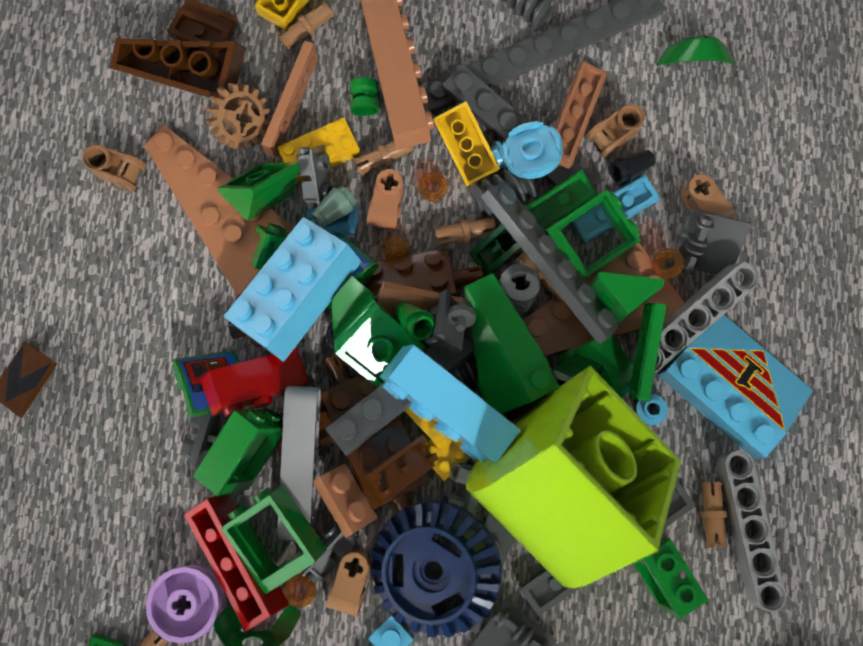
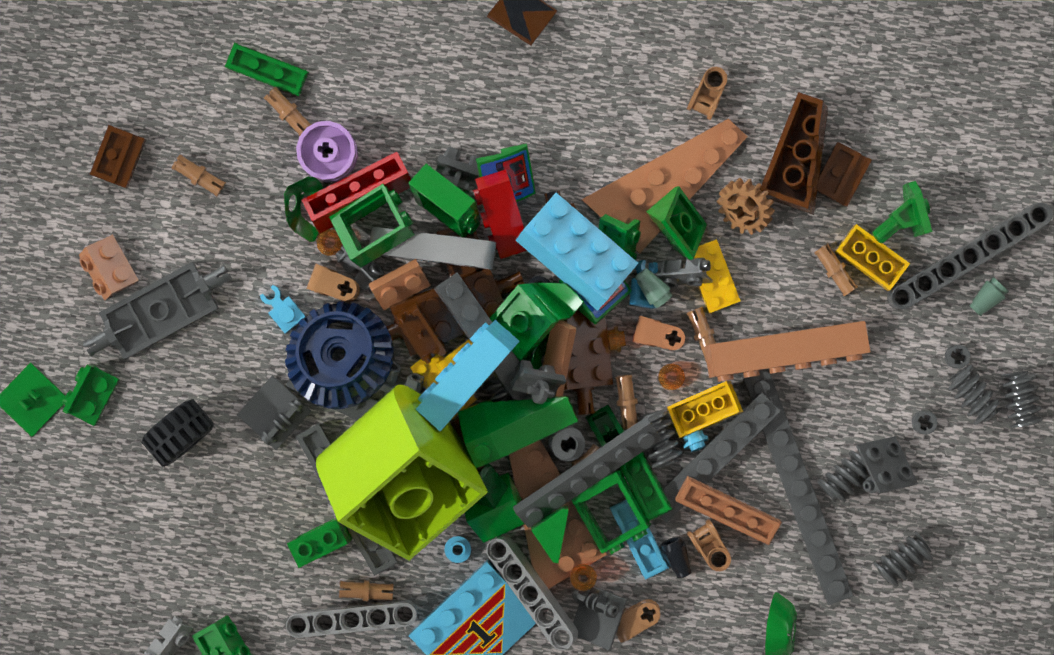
camera: 95 degrees right, 10 degrees up
(290, 99) = (762, 253): nougat tile -> none
(364, 96) = (760, 320): green wheel -> none
(415, 321) = (539, 352): green cone -> none
(532, 150) = (690, 466): medium azure tile -> none
(647, 351) = (502, 545): green tile -> none

